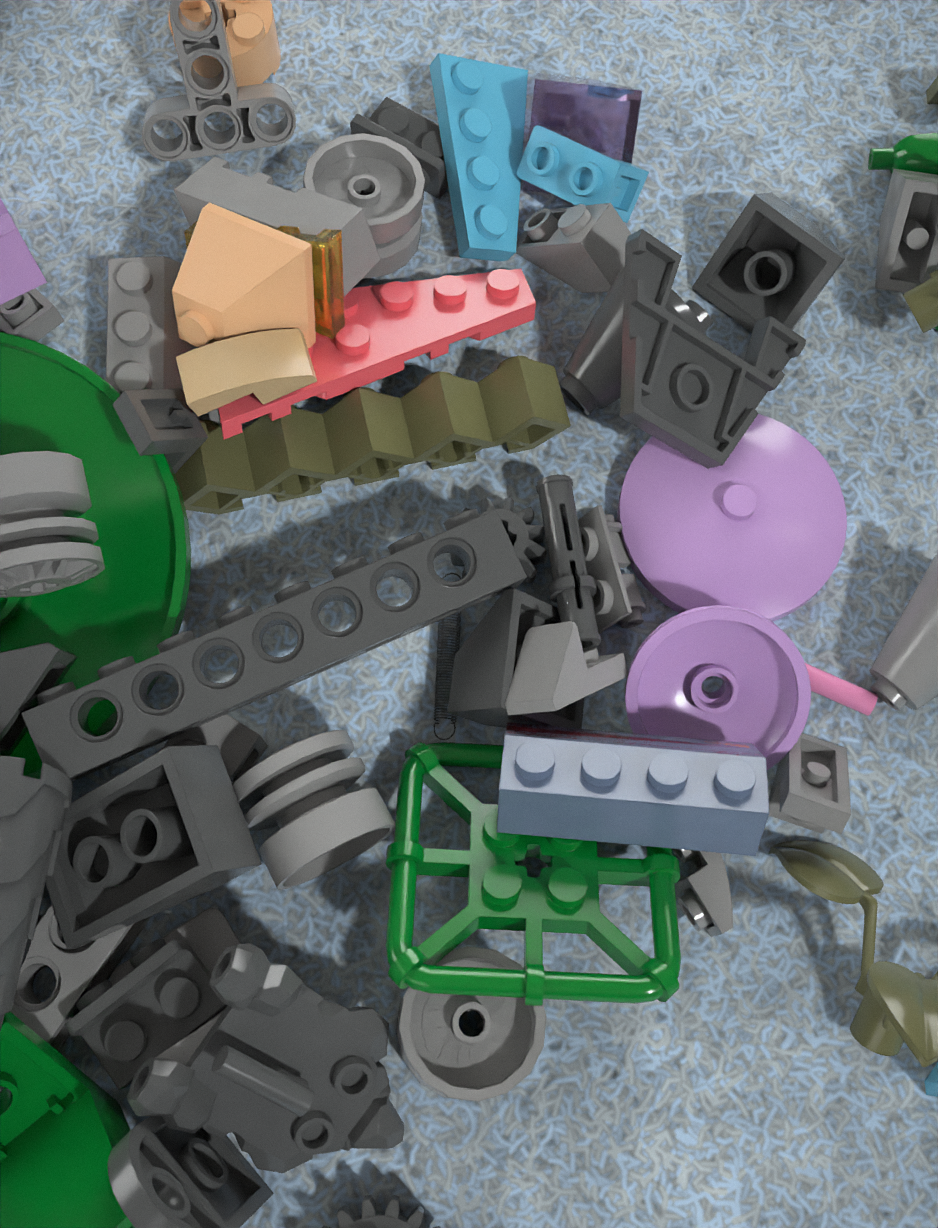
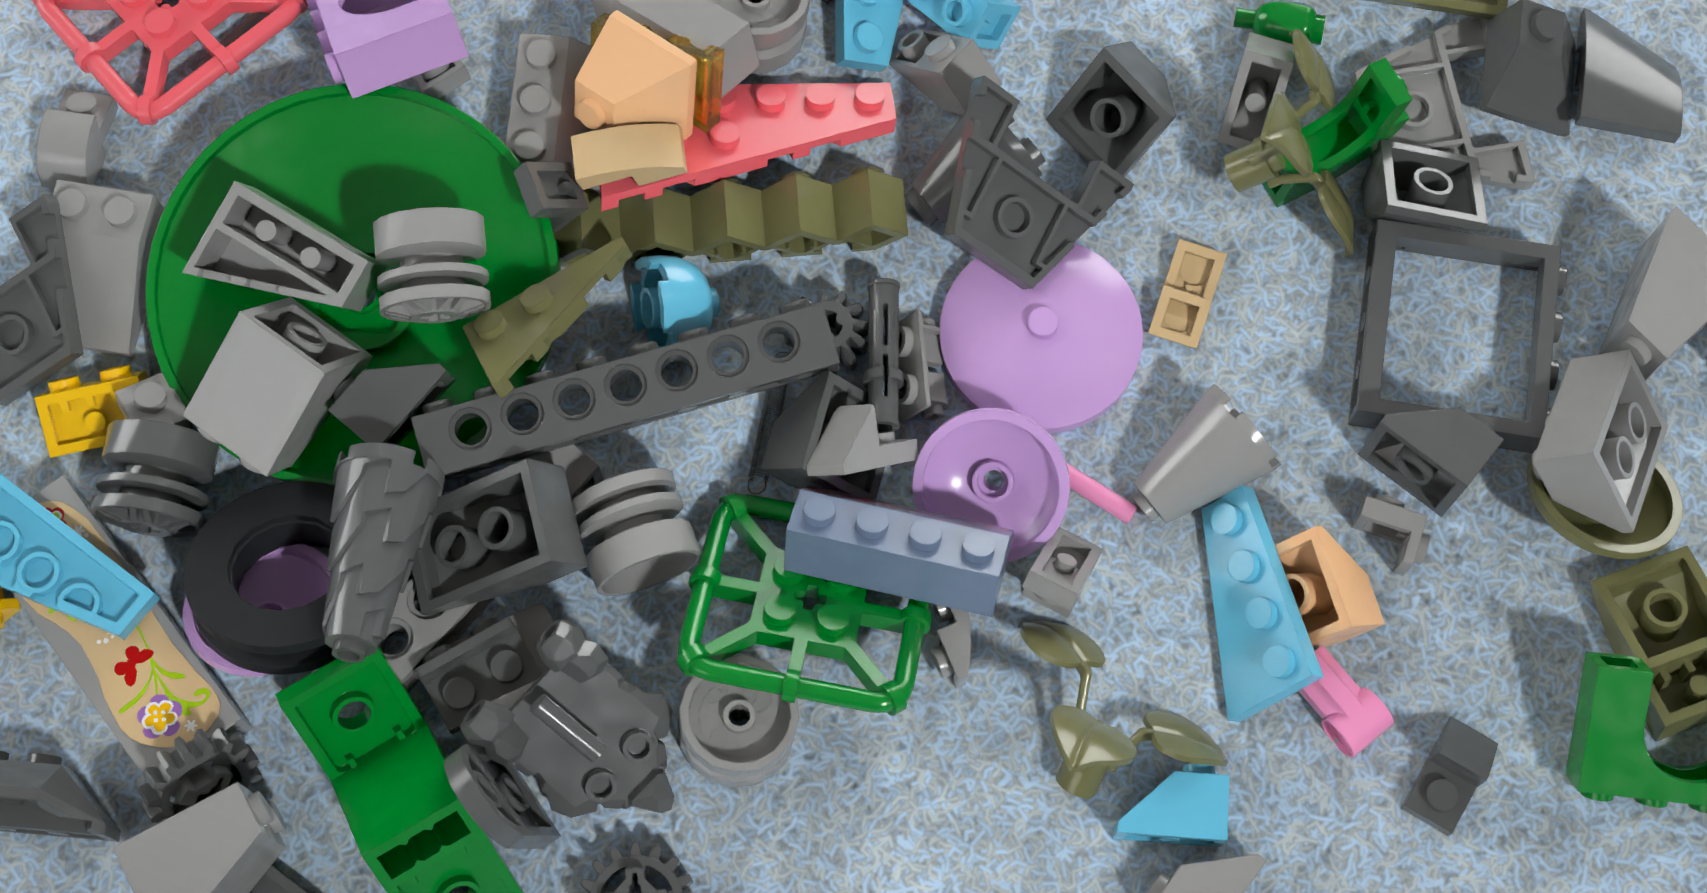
camera: 10 degrees right, 0 degrees up
(166, 566) = (539, 315): none -> olive wing
(317, 528) = (672, 297): none -> medium azure cylinder
(880, 451) = (1187, 293): none -> tan slope

